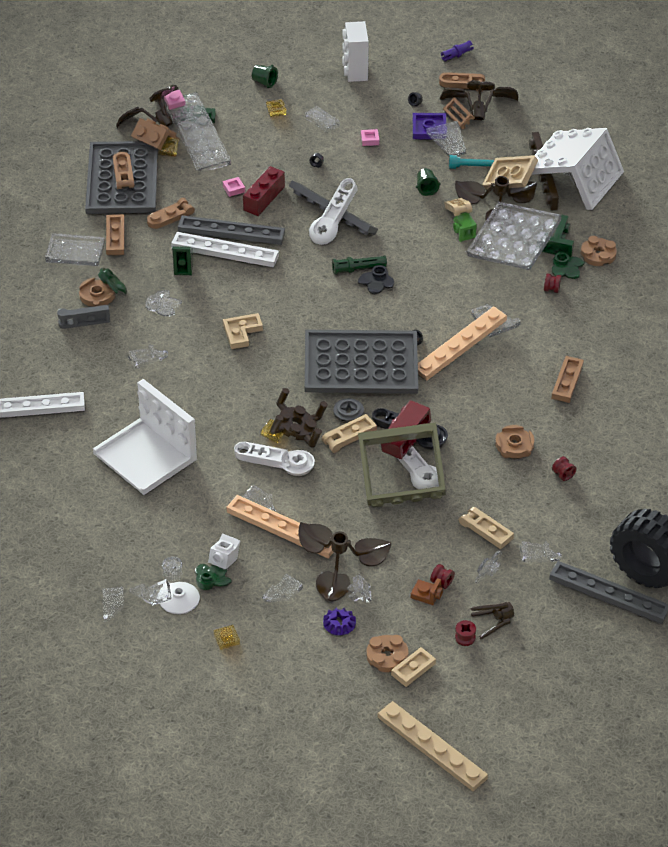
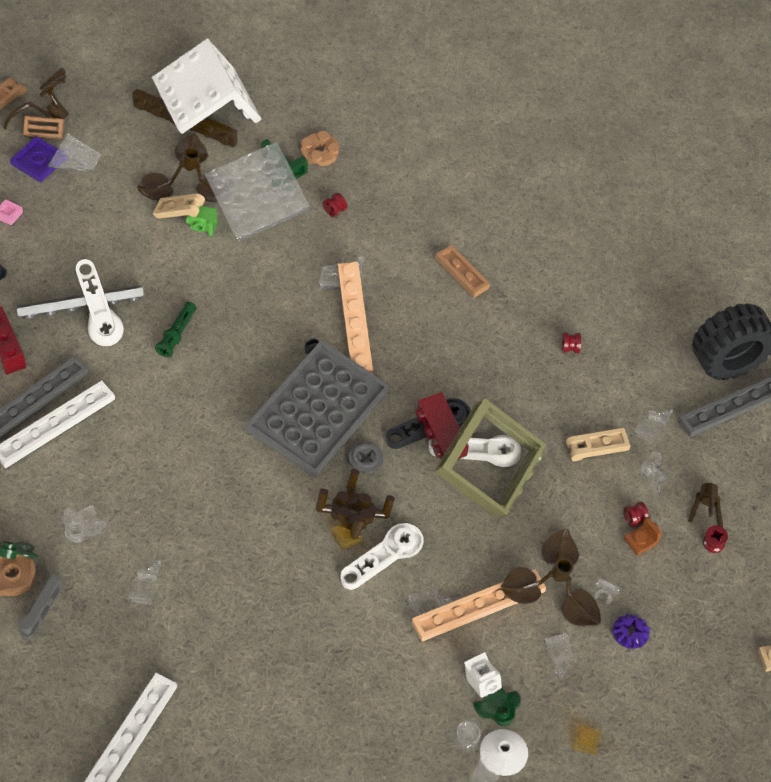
camera: 60 degrees left, 10 degrees up
(154, 444) = (287, 654): white bracket -> none
(182, 260) = (41, 468): dark green slope -> none
(238, 327) = (177, 479): tan plate -> none
(348, 433) = (398, 473): tan plate -> none
(376, 279) = (210, 331): black plate -> none
(384, 643) = (696, 603): medium nougat plate -> none
(413, 667) = (729, 605): tan plate -> none
(427, 182) = (116, 208): dark green piece -> none
(455, 161) = (107, 171): teal piece -> none
(514, 450) = (506, 367): medium nougat plate -> none
(516, 169) = (167, 143): tan plate -> none
(566, 265) = (318, 182): dark green plate -> none

